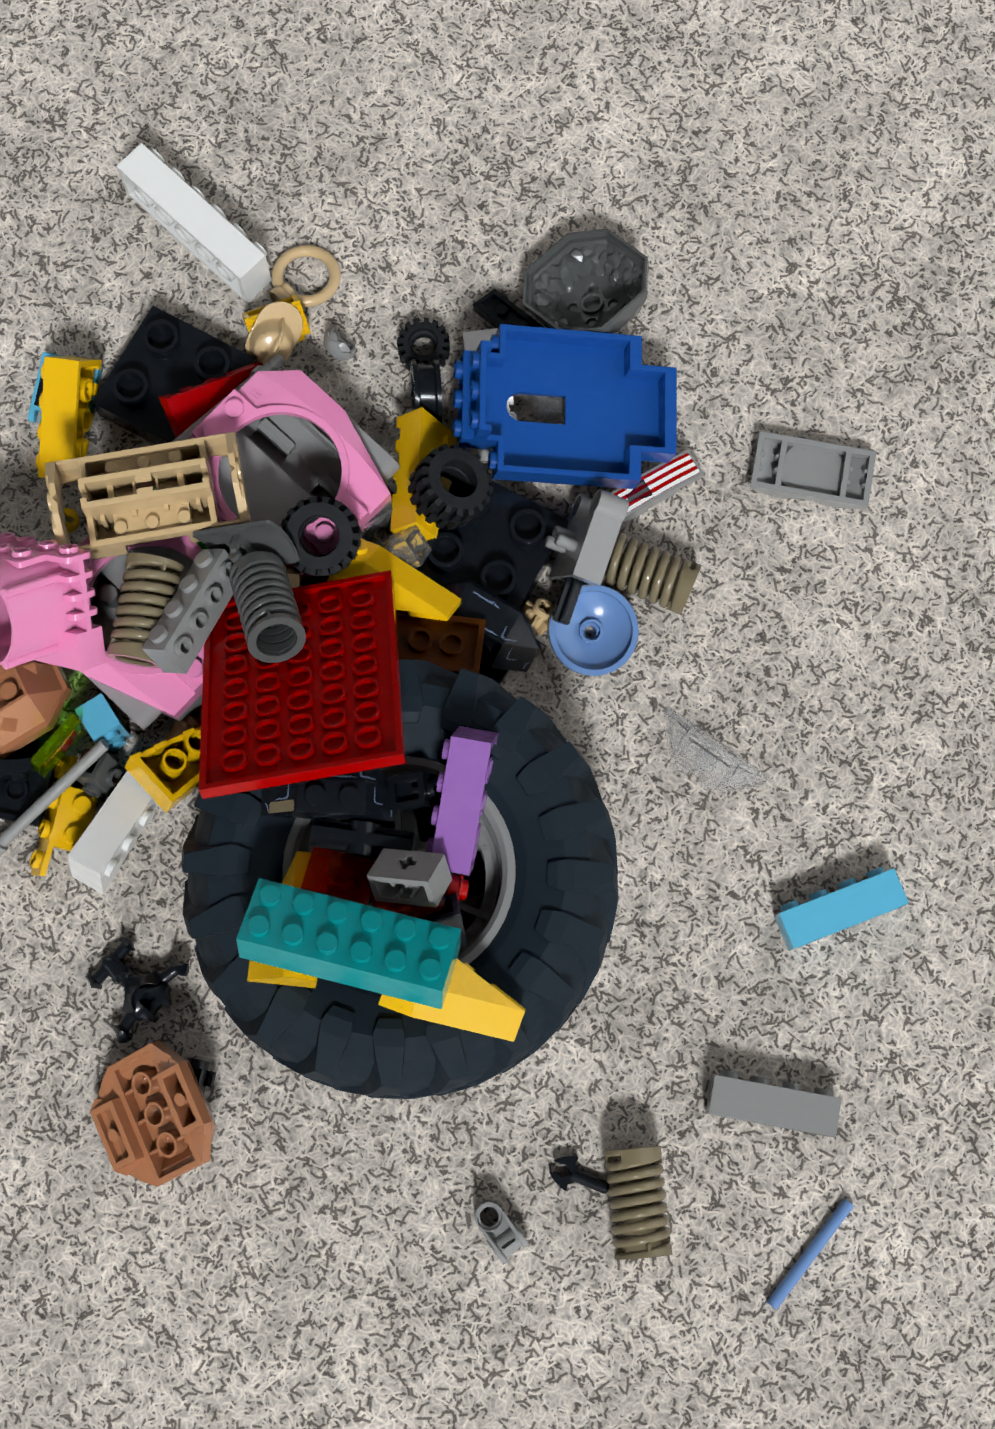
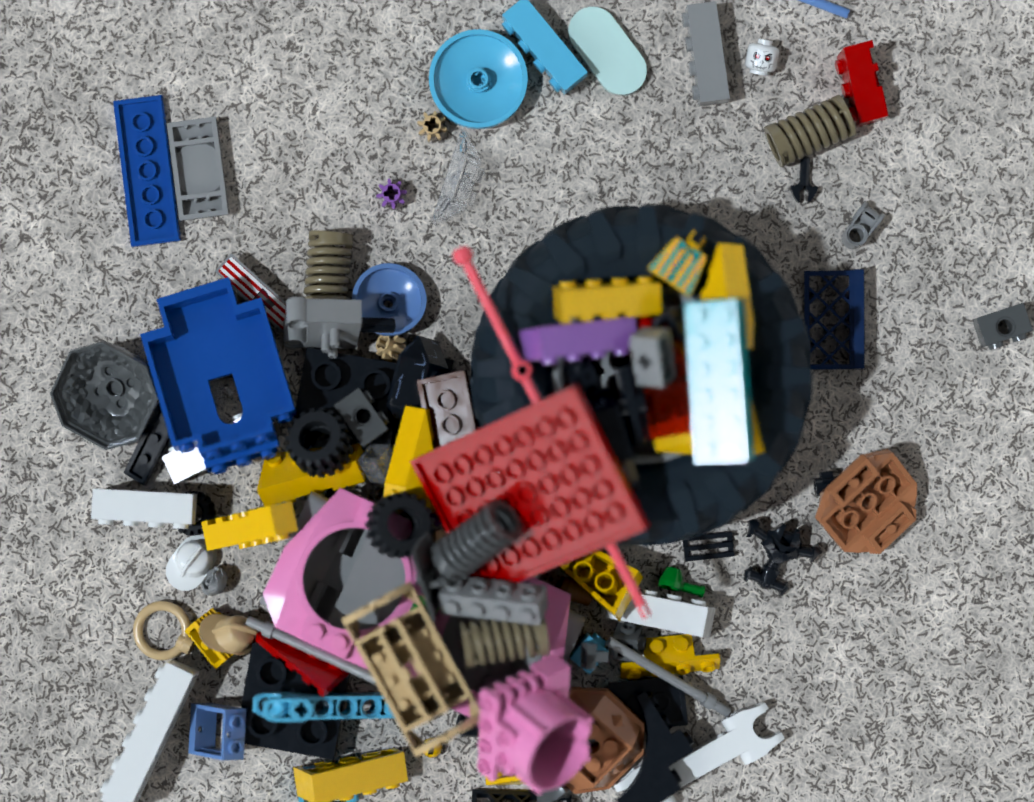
camera: 110 degrees left, 10 degrees up
(58, 745) = (620, 678): clear neon green tile -> none
(92, 716) = (591, 655): none -> dark grey tile
(152, 853) = (673, 580): none -> green bar
(159, 368) = (301, 706): none -> medium azure piece
(172, 880) = (729, 544): none -> black tile
(179, 299) = (203, 742): none -> medium blue window
(317, 1390) = (987, 326): none -> dark grey brick
(369, 330) = (190, 563): none -> white piece
(383, 388) = (250, 527): none -> yellow wedge
(386, 1183) = (856, 318): none -> dark blue fence
(426, 387) = (235, 495): black wheel -> none
(447, 288) = (144, 507): none -> white wedge
(474, 533) = (349, 408): none -> dark grey brick
(500, 847) = (607, 299): none -> yellow wedge
(515, 953) = (680, 263): none -> torso
(608, 691) = (463, 257): none -> coral bar
(676, 1290) = (861, 84): none -> red wedge
(724, 672) = (397, 198): none -> medium lavender gear
(748, 1174) = (762, 57): none -> white head
(775, 745) = (436, 131): none -> tan gear
(812, 986) = (607, 51): none -> light aqua tile
(823, 817) = (478, 79): none -> medium azure dish
(828, 416) = (147, 171): none -> blue tile

